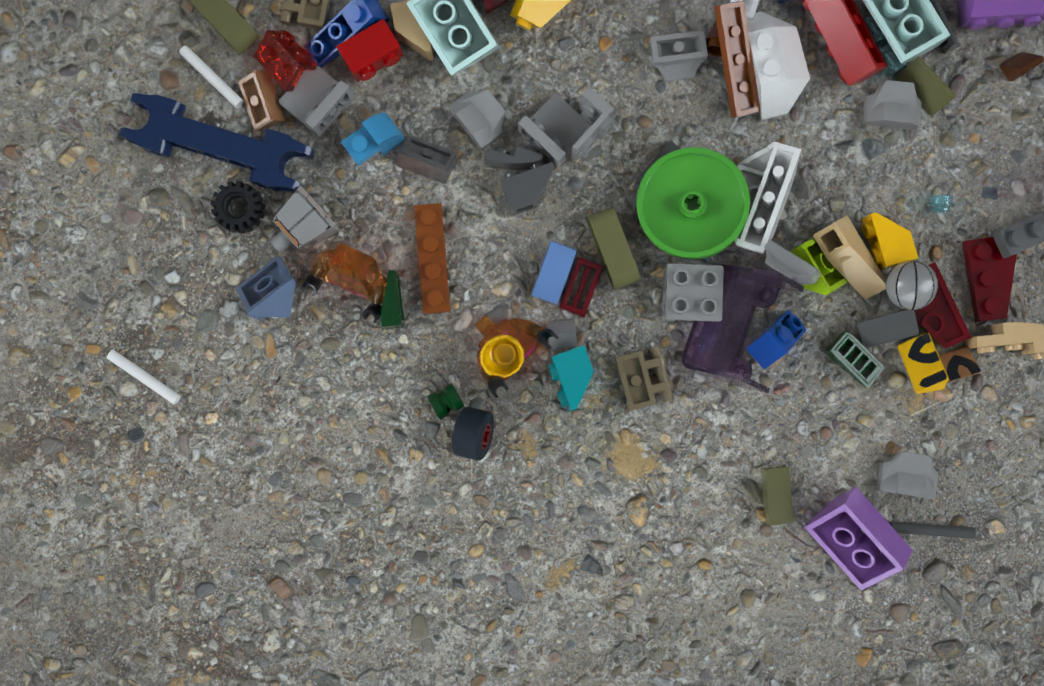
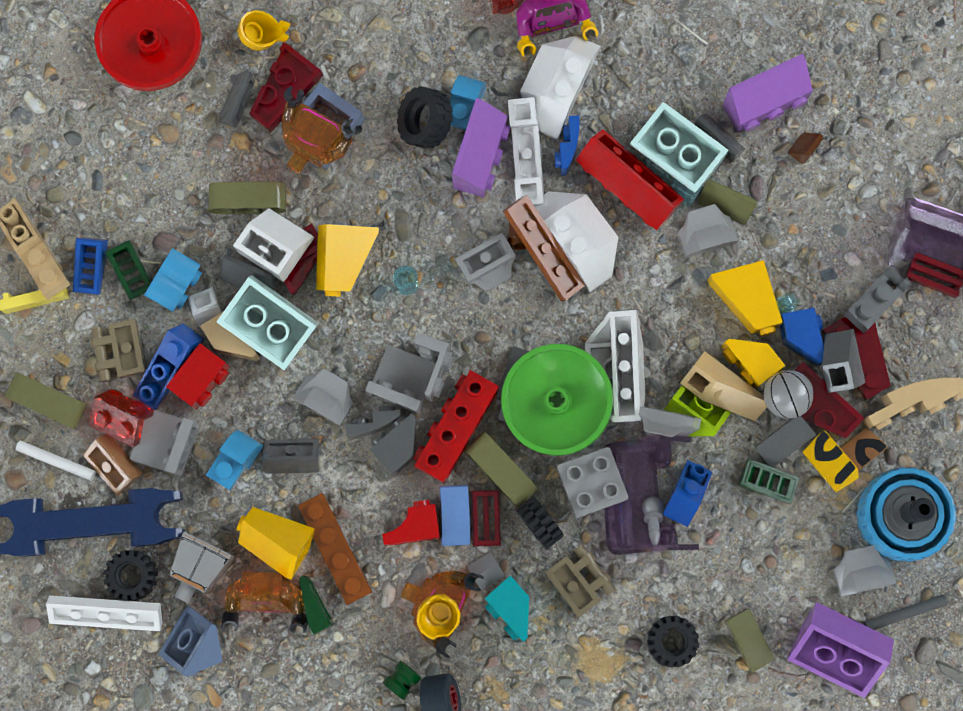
camera: 20 degrees left, 5 degrees down
(201, 231) = (104, 613): none -> white plate
(381, 227) = (275, 540): none -> yellow slope
(516, 269) = (418, 526): none -> red arch
(589, 192) = (456, 427): none -> red brick
(596, 31) = (403, 272): none -> clear light blue bush
(630, 310) = (539, 522): none -> black tyre
(723, 473) = (689, 636): none -> black tyre
(737, 342) = (652, 509): none -> light grey bar
(909, 182) = (749, 296): none -> yellow slope
(944, 238) = (802, 334): none -> blue slope
(973, 440) = (906, 514): none -> dark azure wheel
(974, 275) = (842, 361): none -> dark grey slope

